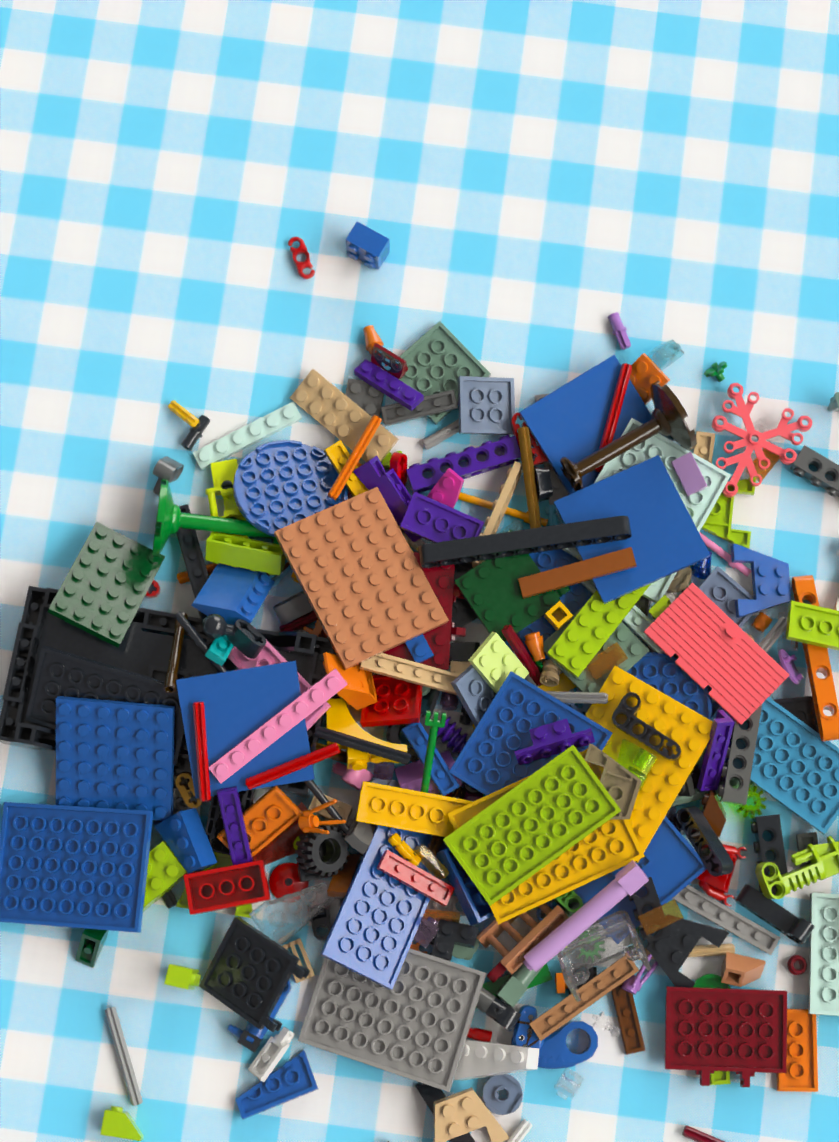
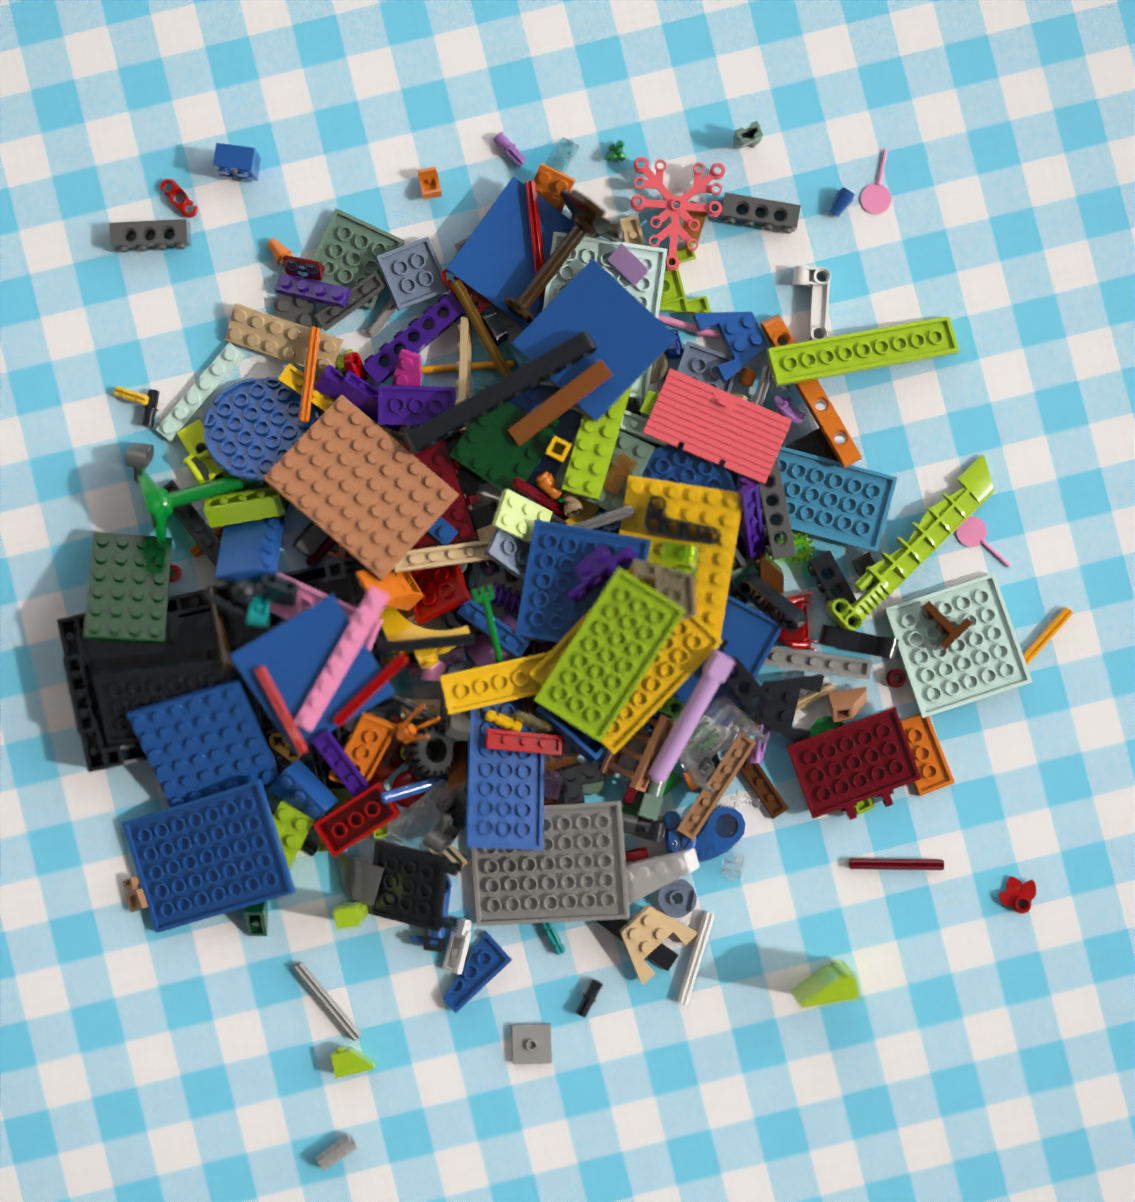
camera: 25 degrees left, 10 degrees up
(204, 946) = (359, 877): none -> dark grey slope
(237, 266) = (120, 231): none -> dark grey brick
(289, 879) = (411, 789): none -> blue axle
(301, 935) = (441, 835): none -> dark grey beam
(366, 1083) = (553, 938): none -> teal axle
(534, 331) = (429, 183): none -> orange bracket
(660, 917) = (758, 690): clear orange tile -> none

